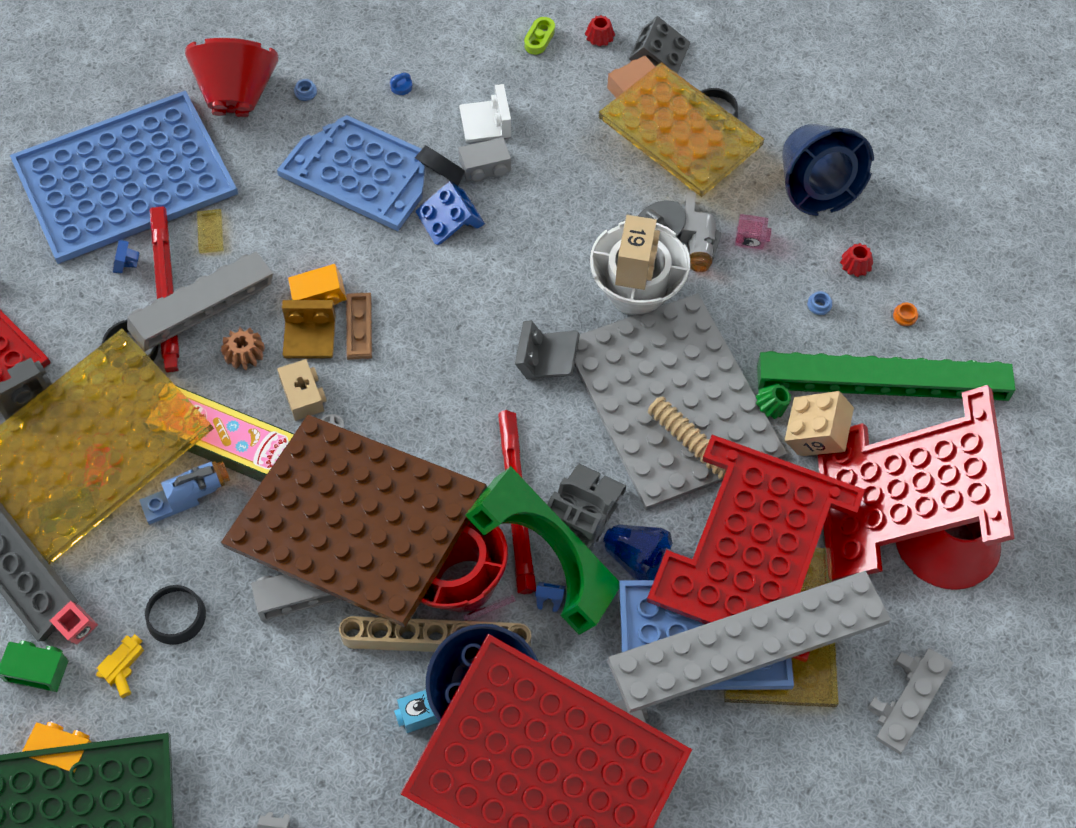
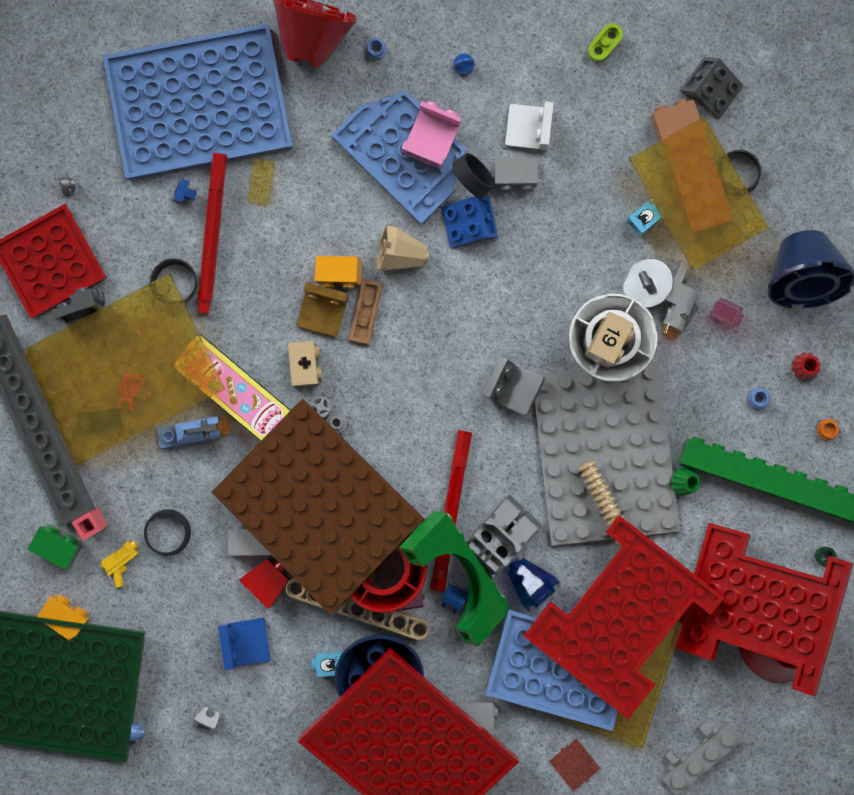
camera: 20 degrees right, 25 degrees up
(199, 301) = (238, 259): light grey brick -> none
(242, 348) = (273, 308): nougat gear -> none
(302, 717) = (244, 643): none -> blue bracket
(313, 633) = (266, 581): none -> red torso
(381, 254) = (400, 251): none -> tan cone
(385, 142) = (432, 135): none -> bright pink panel
(600, 31) = (659, 60): red piece -> none
(633, 168) = (644, 218): none -> medium azure brick
(747, 641) = (588, 697): light grey plate -> none
(763, 752) = (574, 764): none -> clear red piece
(819, 424) = (713, 519): tan brick -> none

